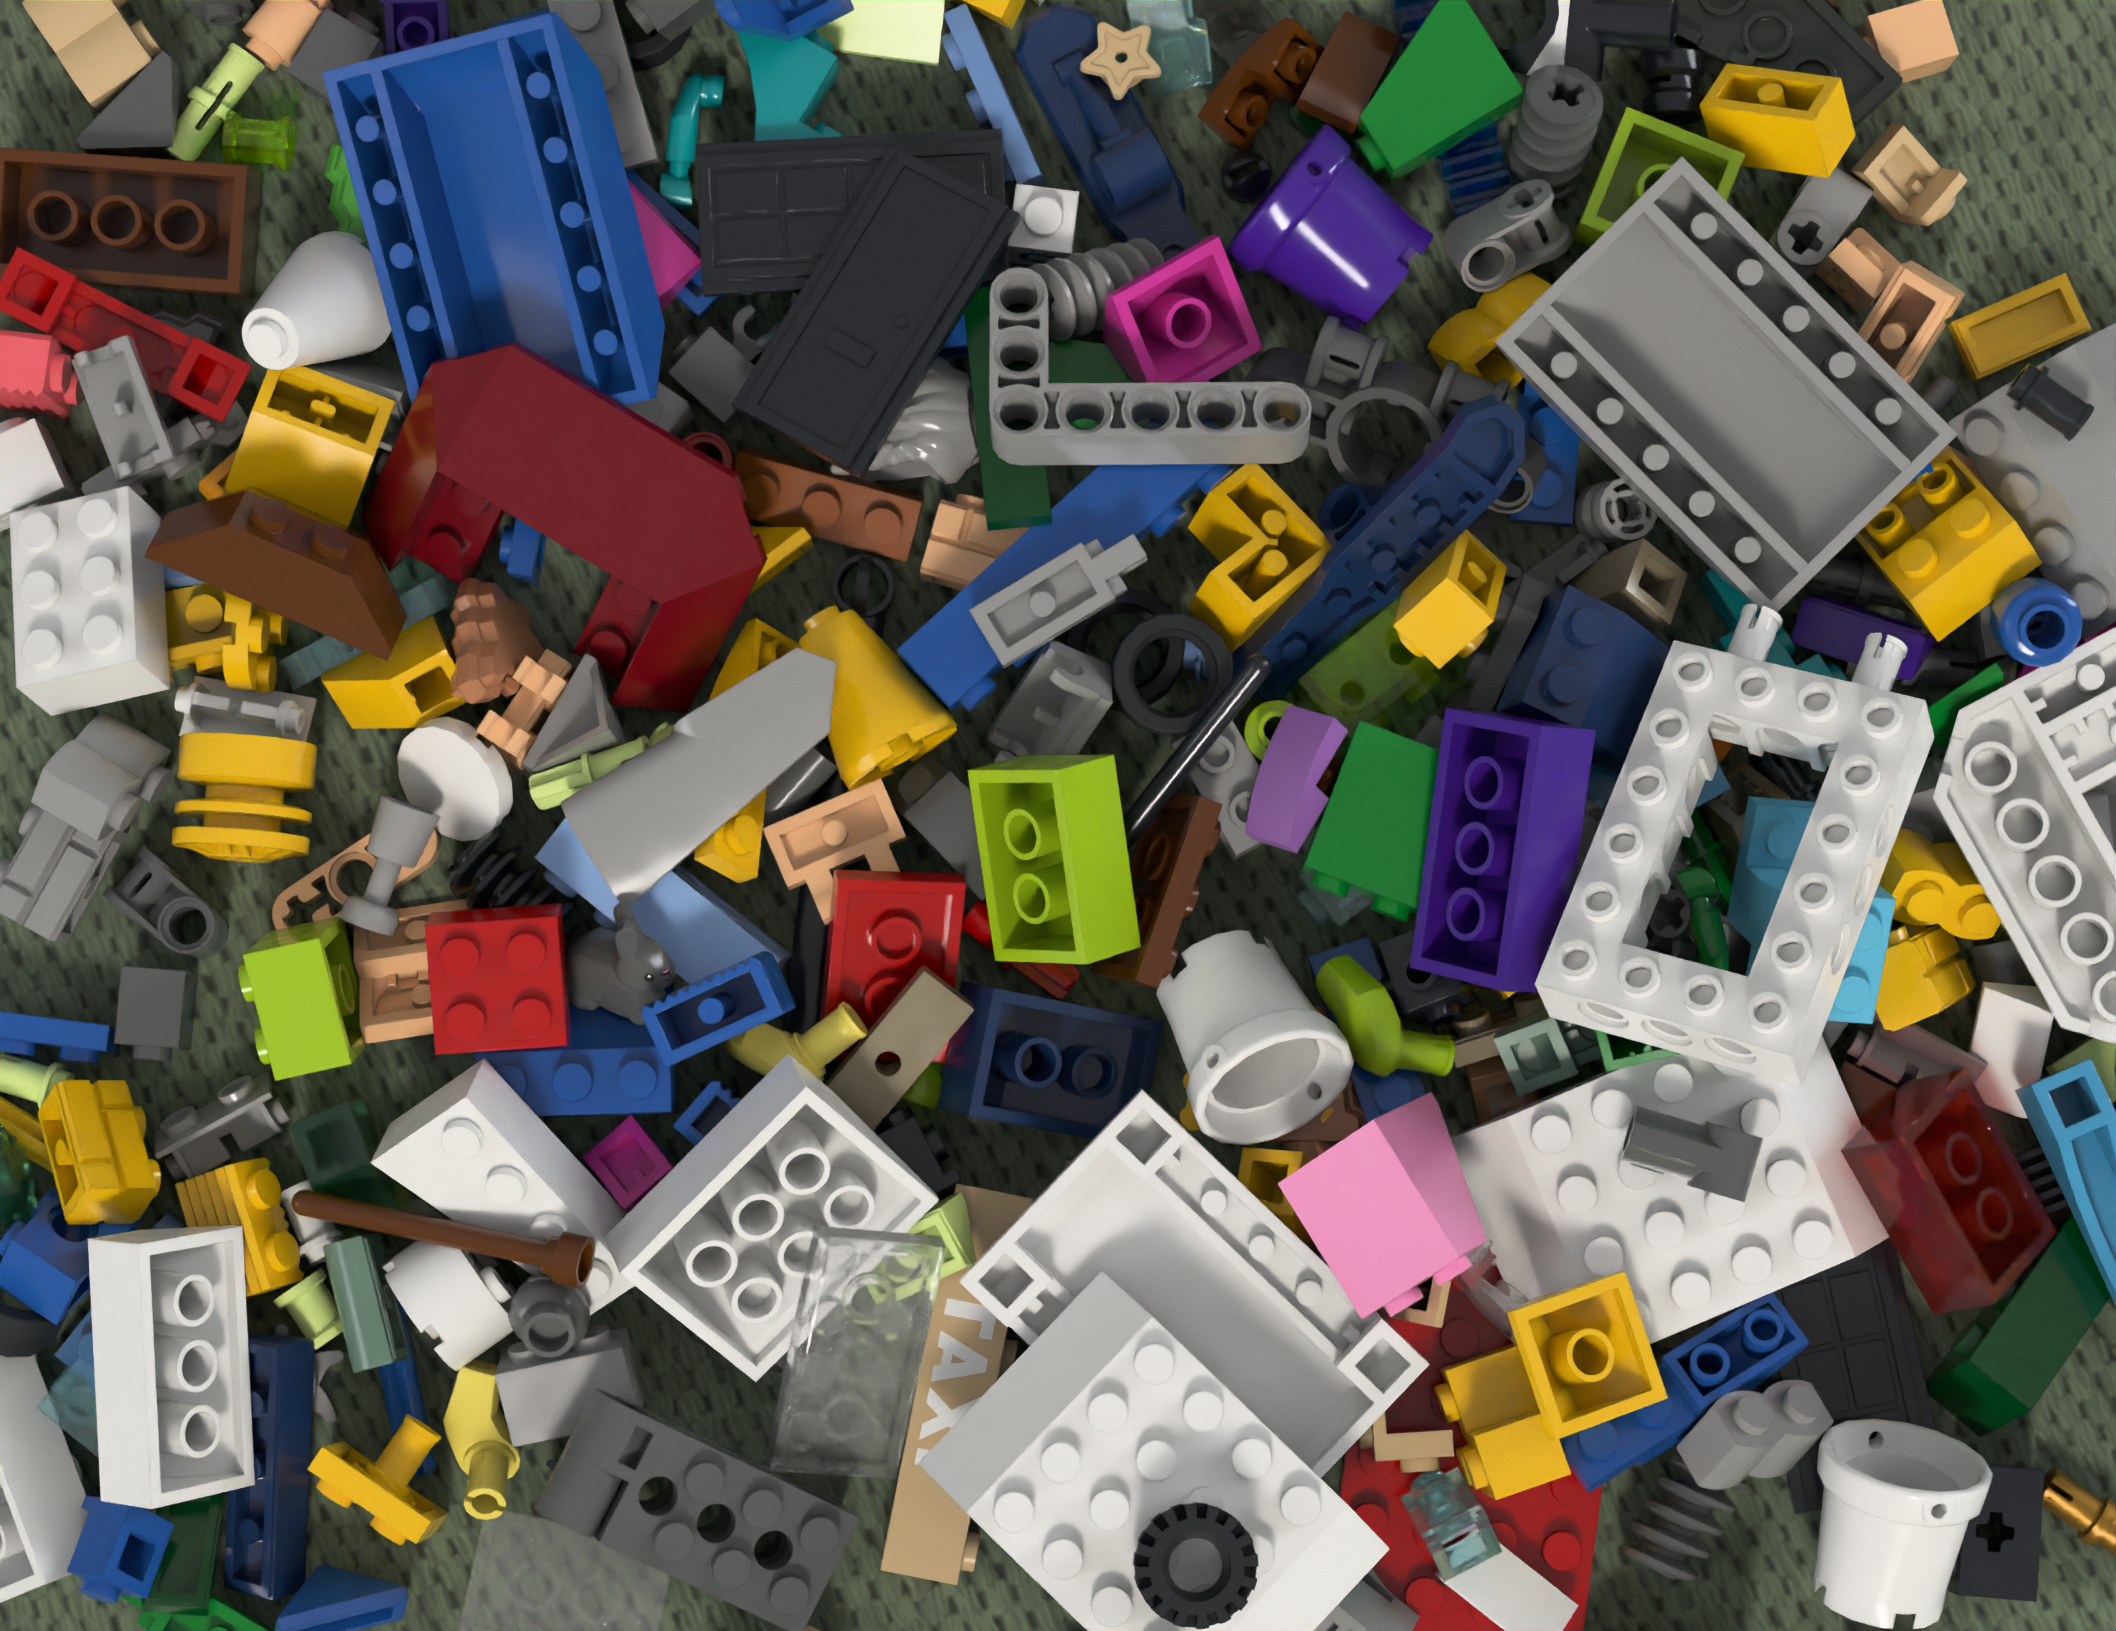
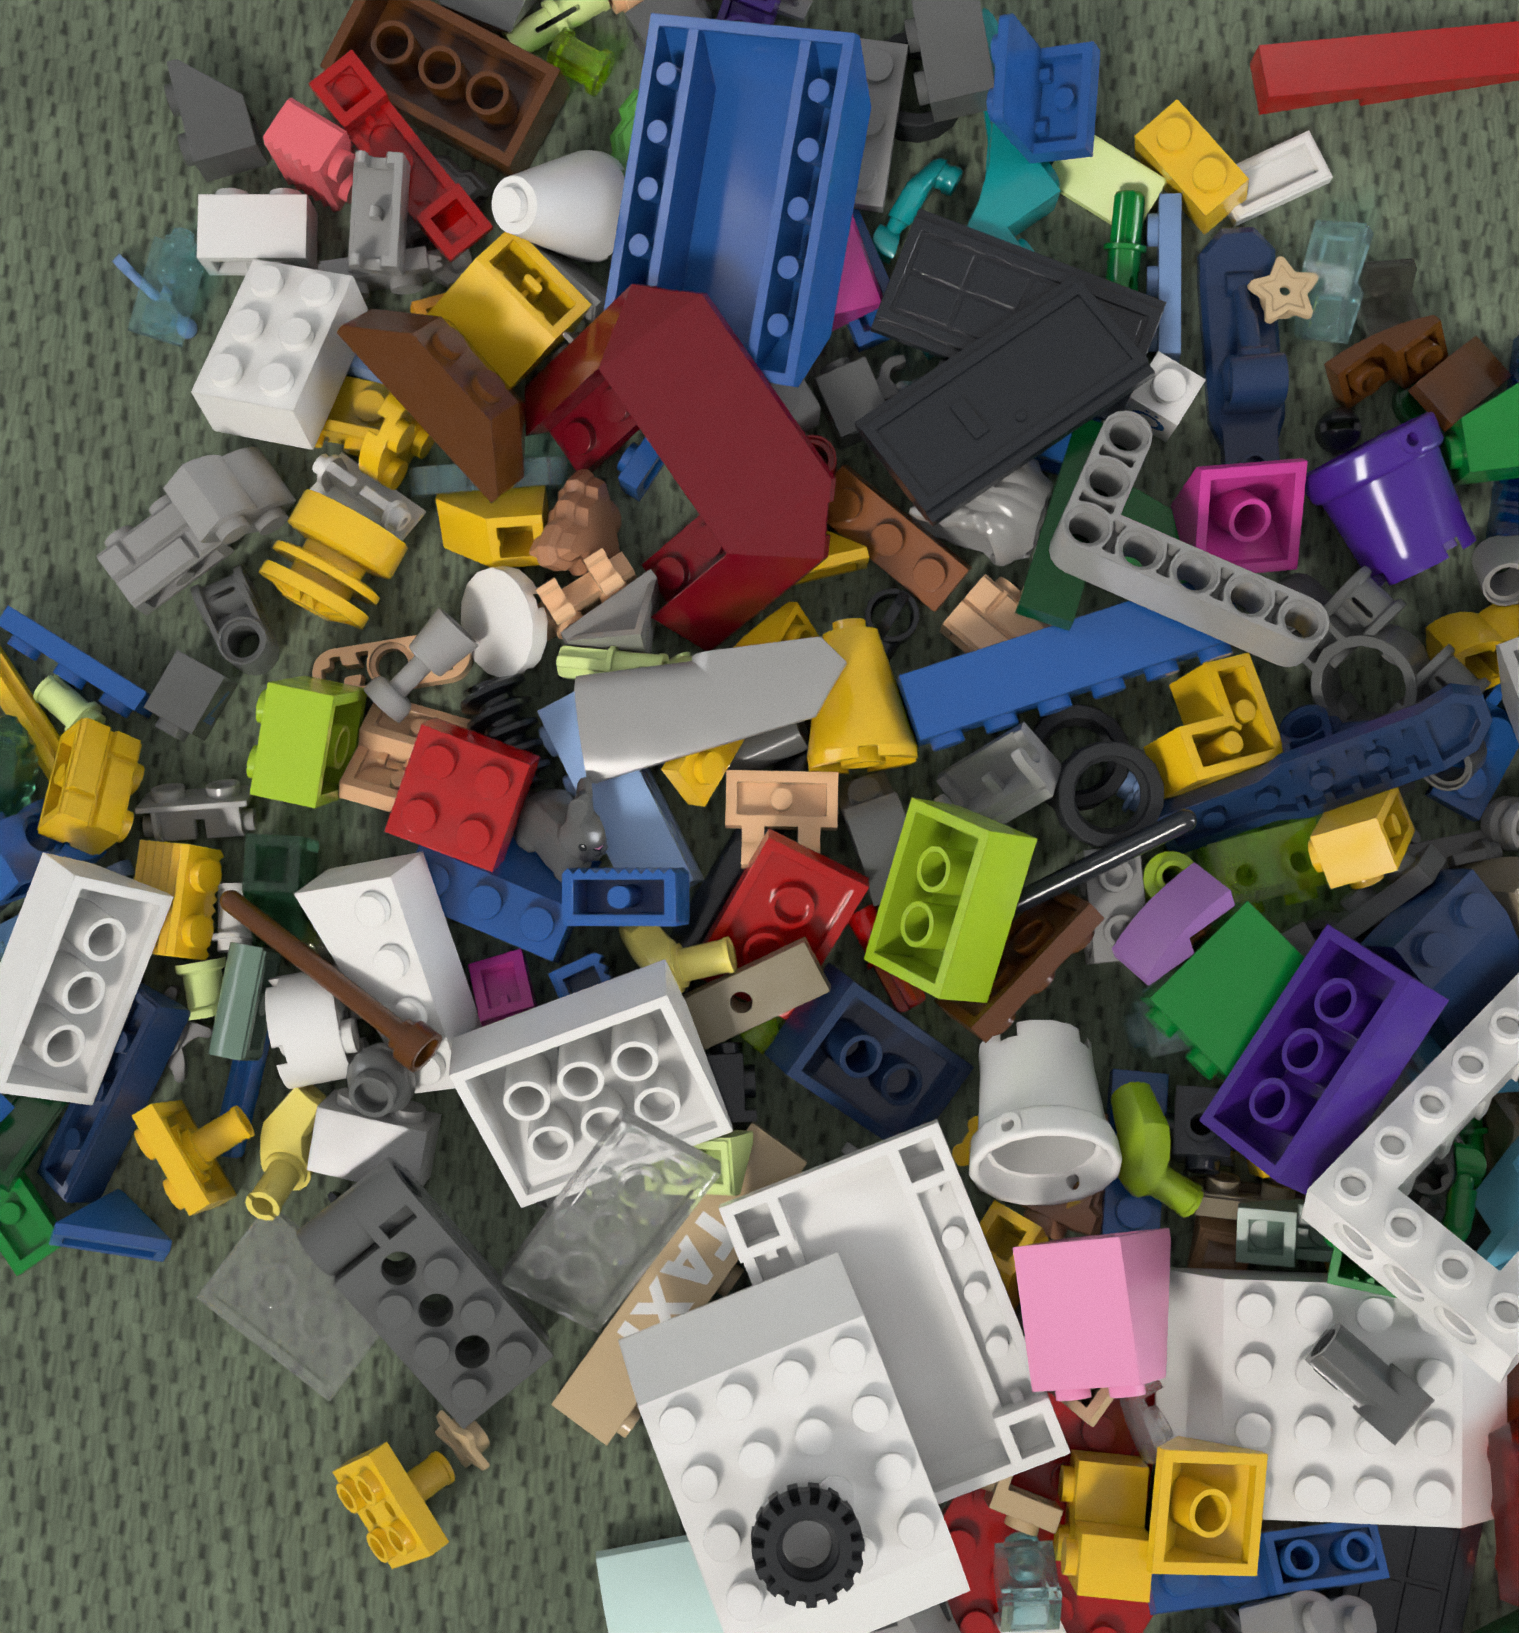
camera: 30 degrees right, 0 degrees up
(931, 78) = (1125, 239): none -> green axle
(1056, 597) = (1047, 690): light grey hinge -> none
(1082, 280) = (1178, 452): light grey piece -> none

